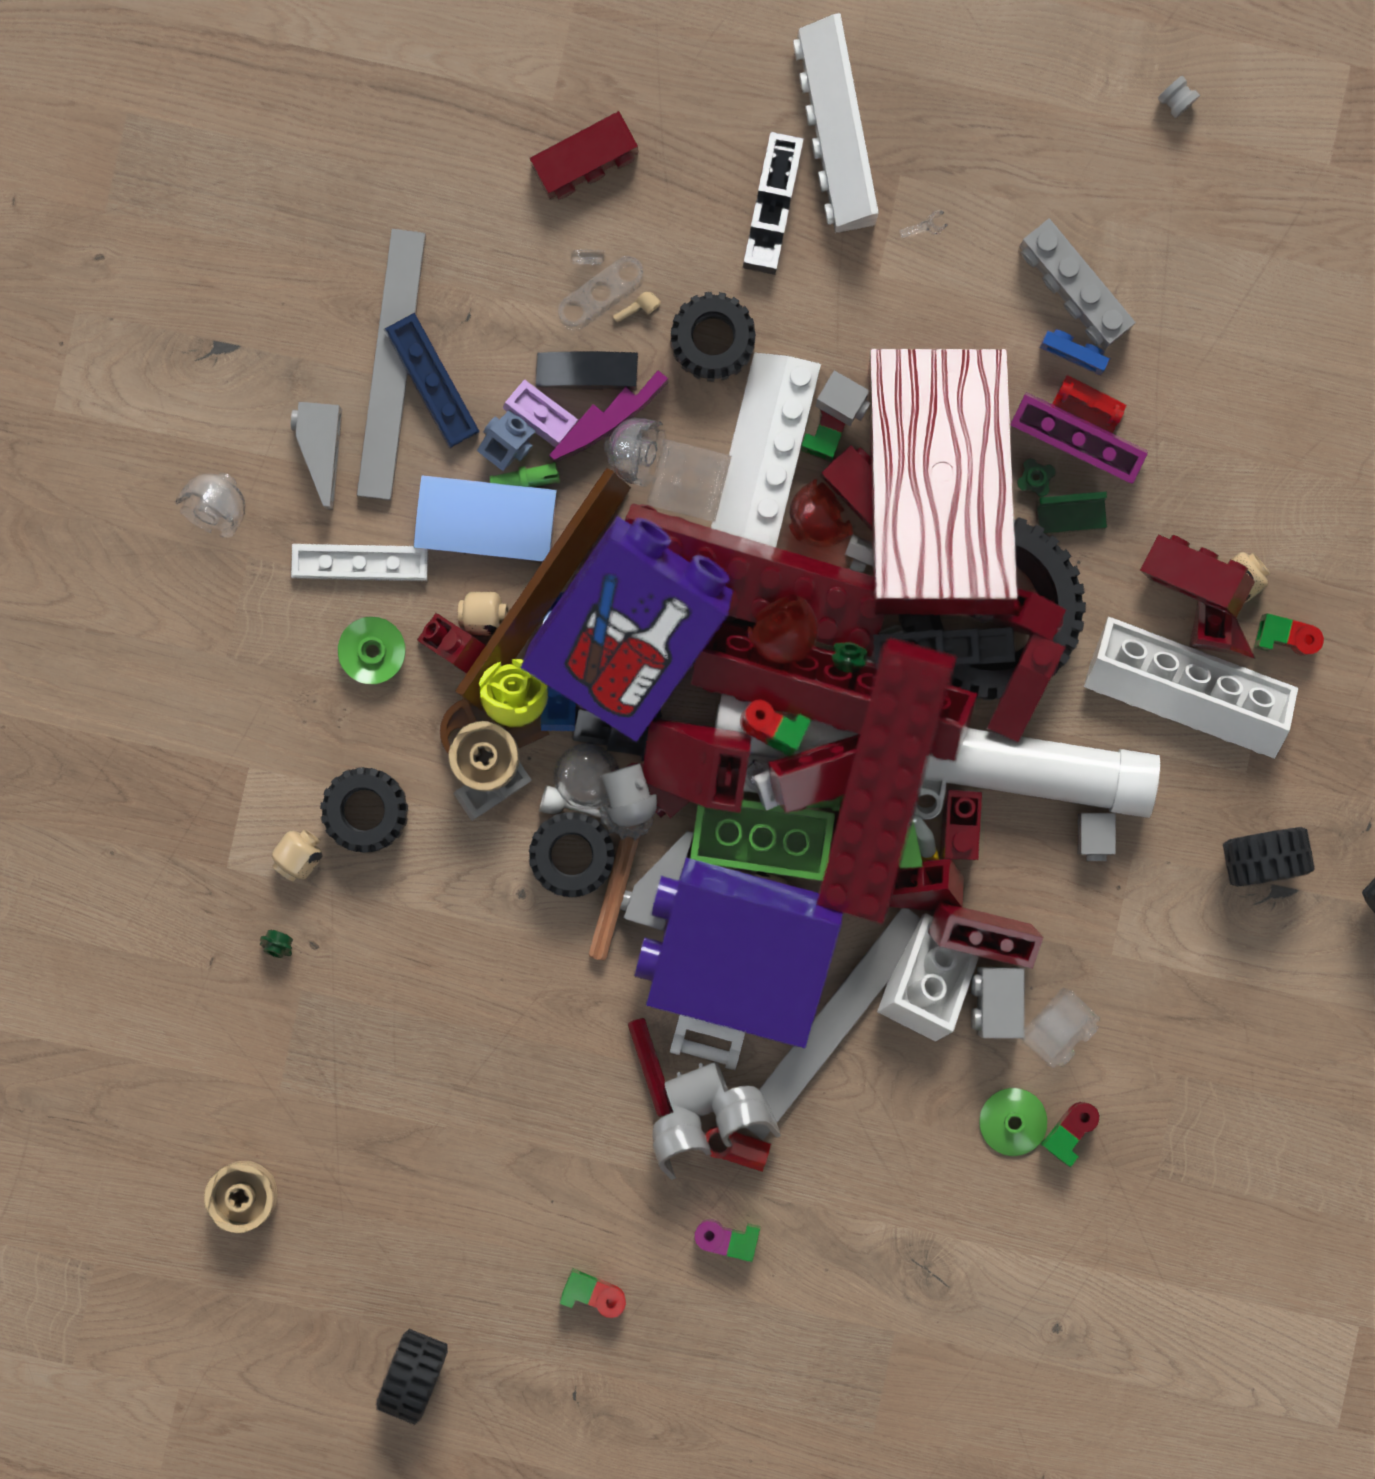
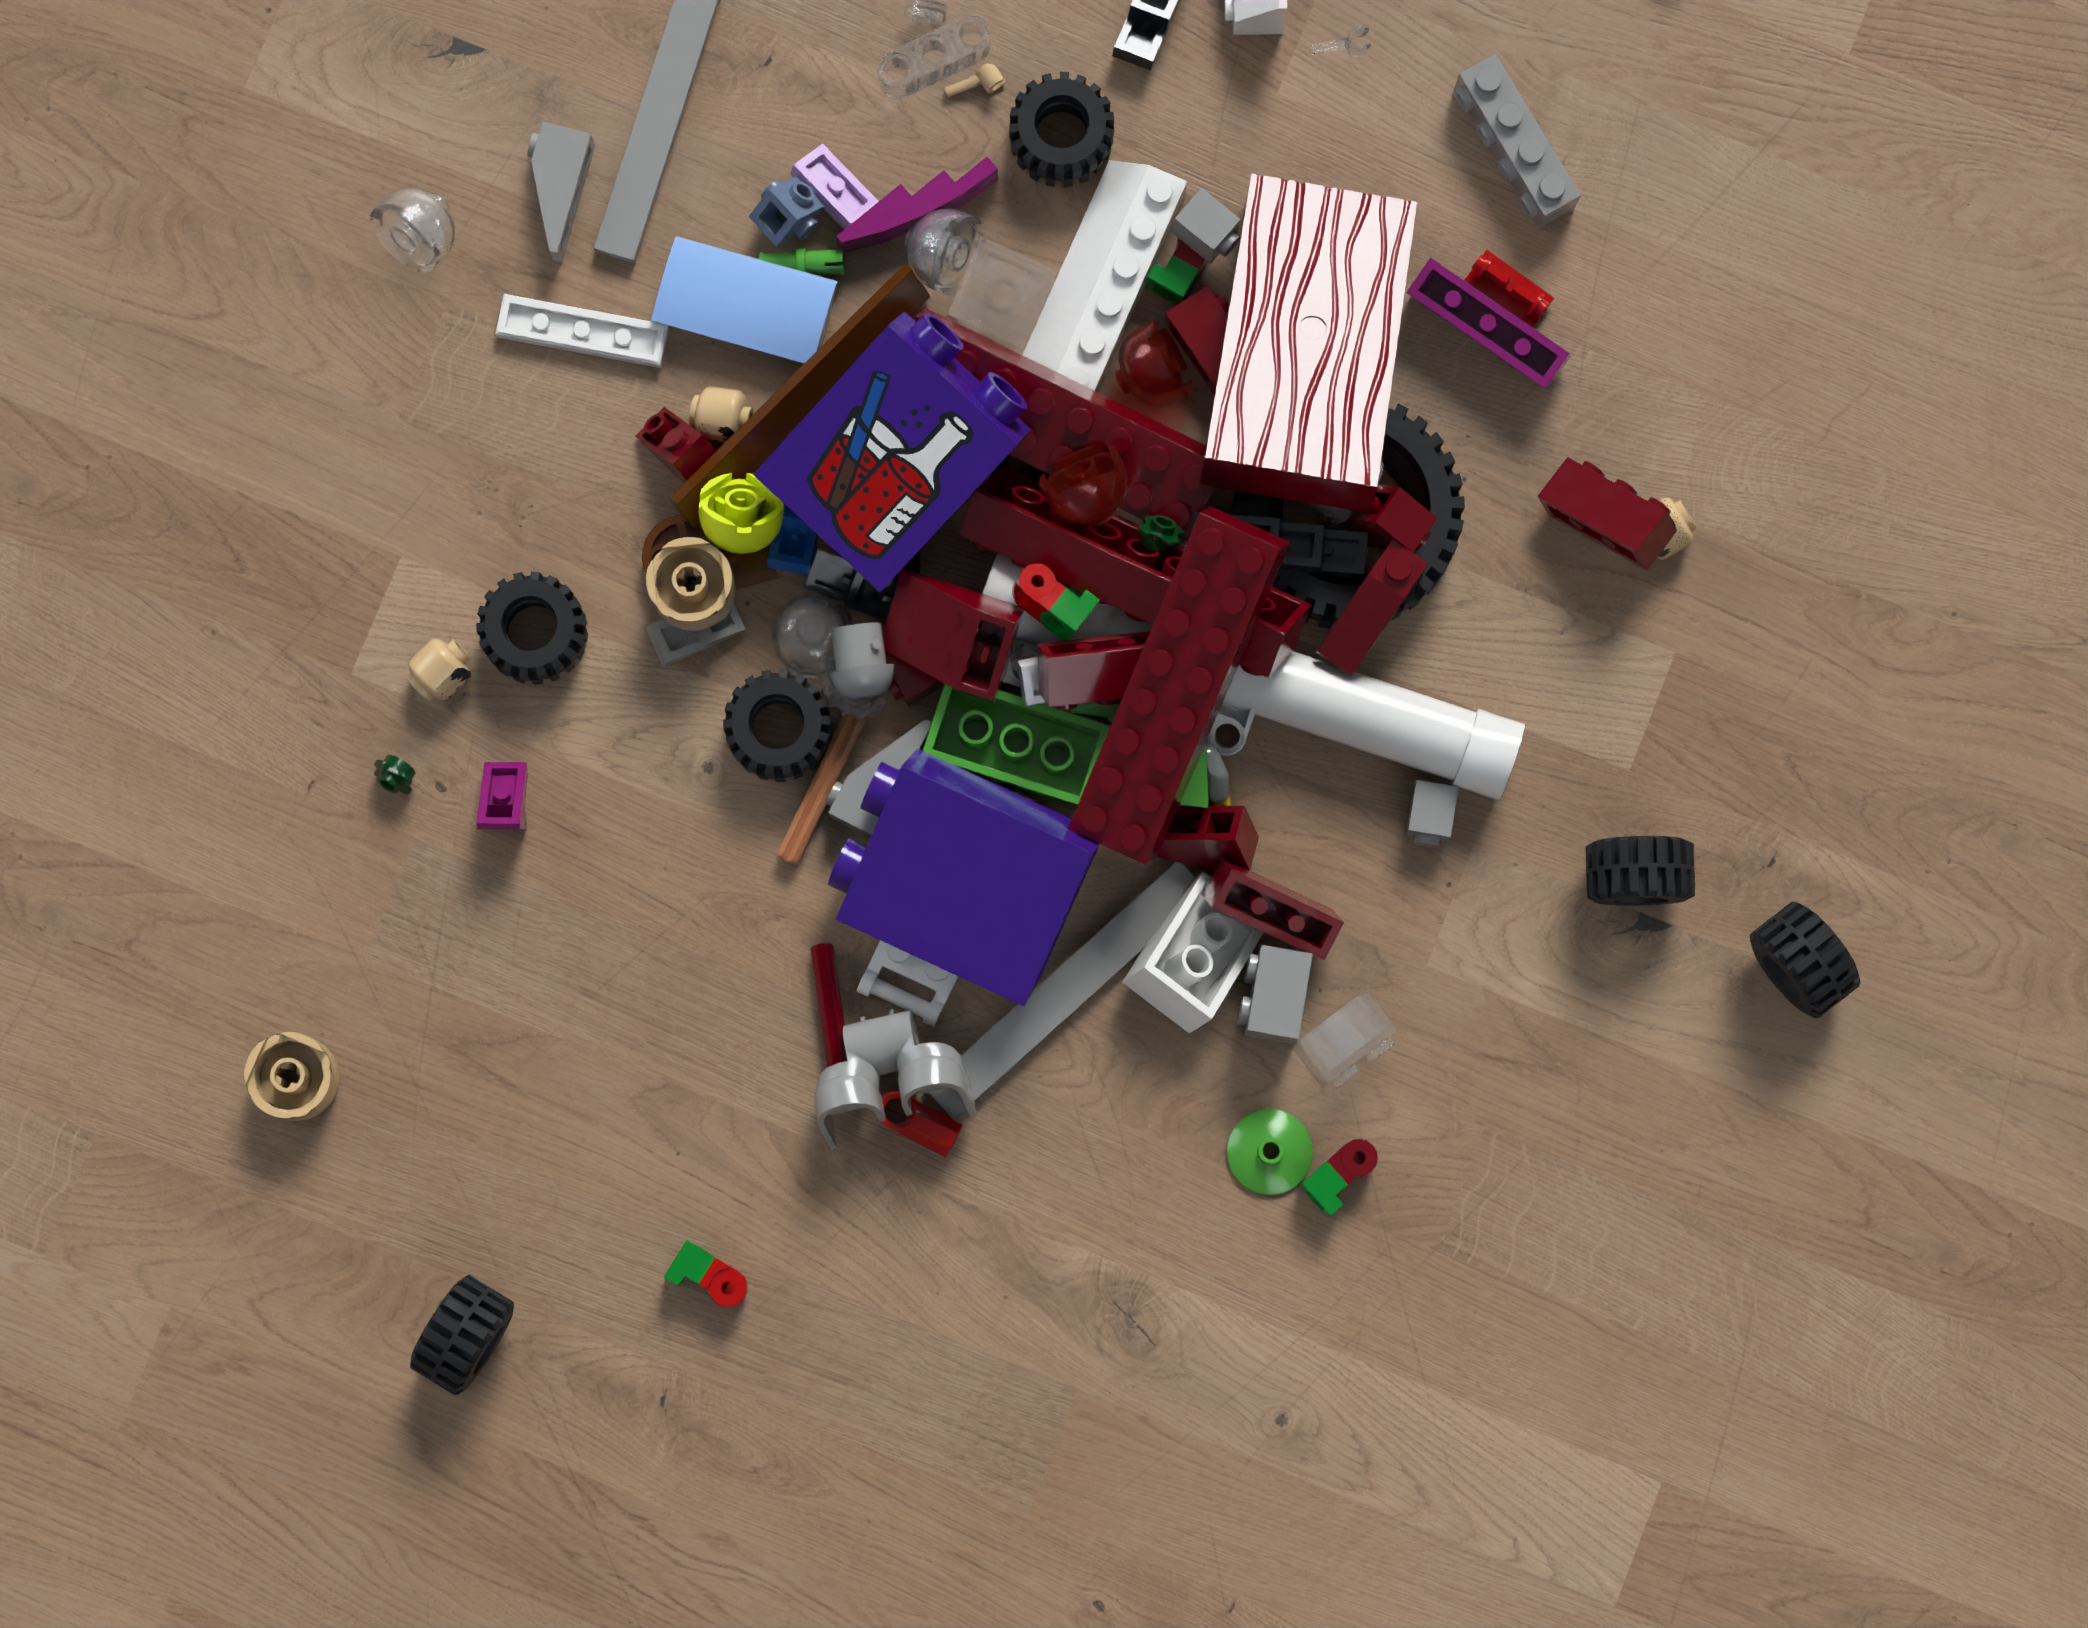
camera: 10 degrees right, 5 degrees down
(354, 645) = (577, 416): bright green dish -> none
(365, 948) = (503, 796): none -> magenta slope
(431, 380) = (709, 126): dark blue tile -> none
(554, 803) = (767, 658): white hinge -> none
(587, 370) = (902, 145): black slope -> none
(726, 1241) = (871, 1230): leg -> none
(862, 553) = (1198, 418): light grey tile -> none
(961, 825) = (1266, 771): dark red slope -> none
(1027, 482) = (1430, 378): dark green plate -> none
(1072, 512) = (1467, 414): dark green panel -> none
(1088, 357) = (1513, 231): blue plate -> none
(1192, 687) = (1578, 653): white slope -> none
(1218, 632) = (1623, 591): dark red slope -> none
(1299, 636) = (1709, 606): leg -> none

